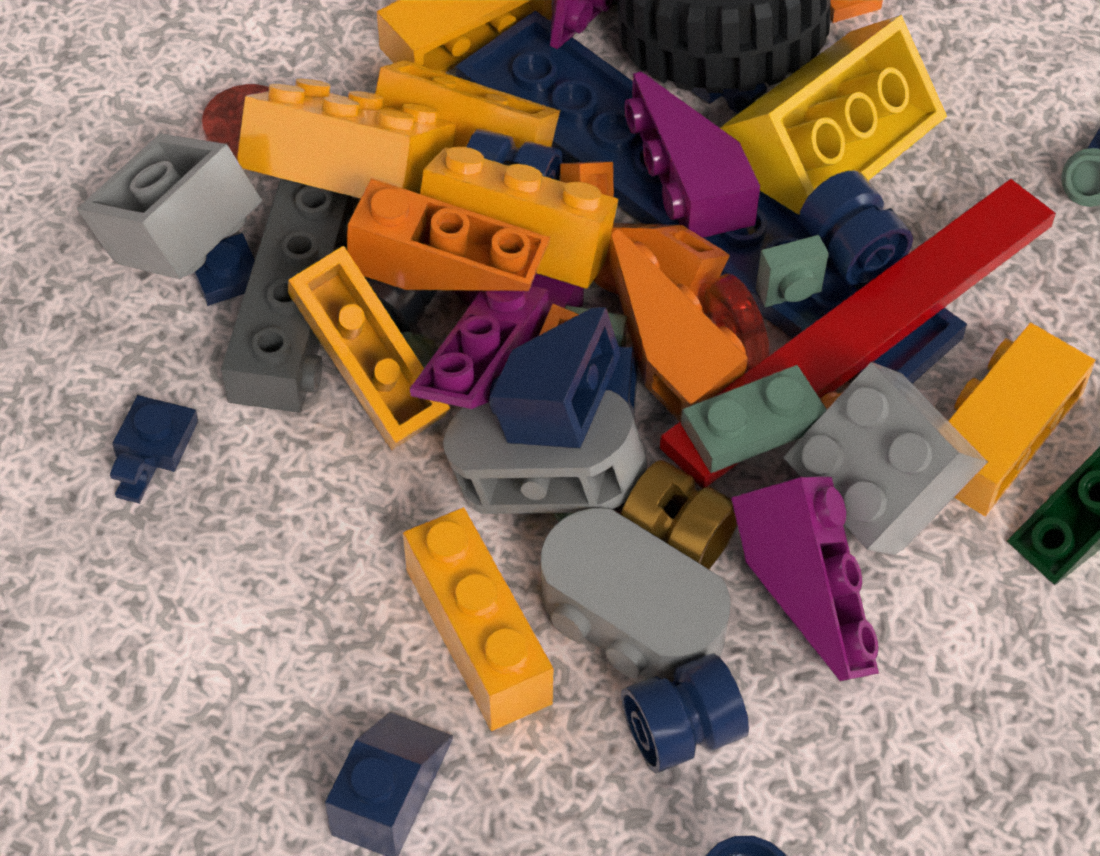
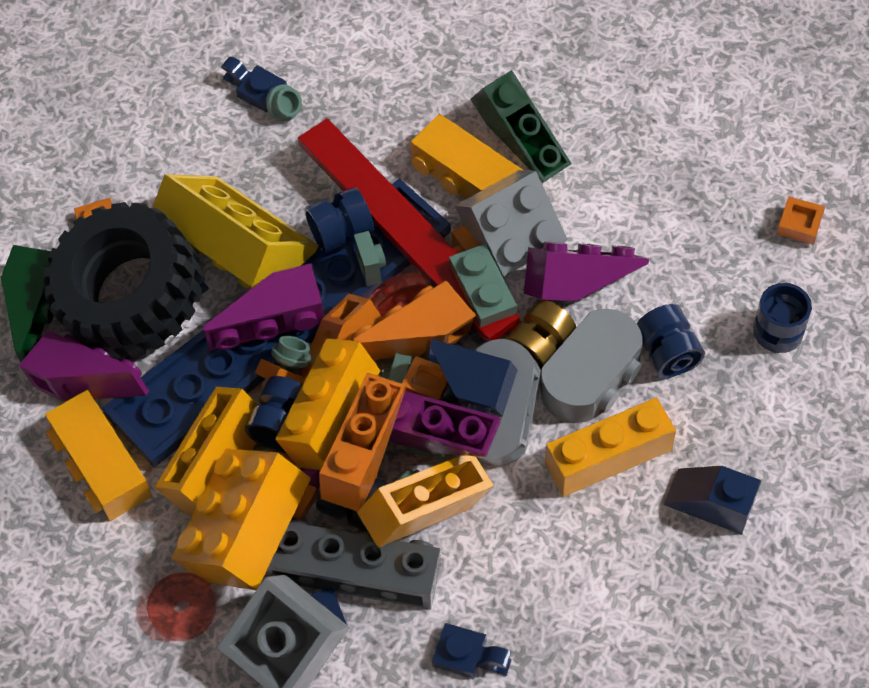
camera: 85 degrees left, 5 degrees up
(627, 185) = (291, 353): none -> sand green plate

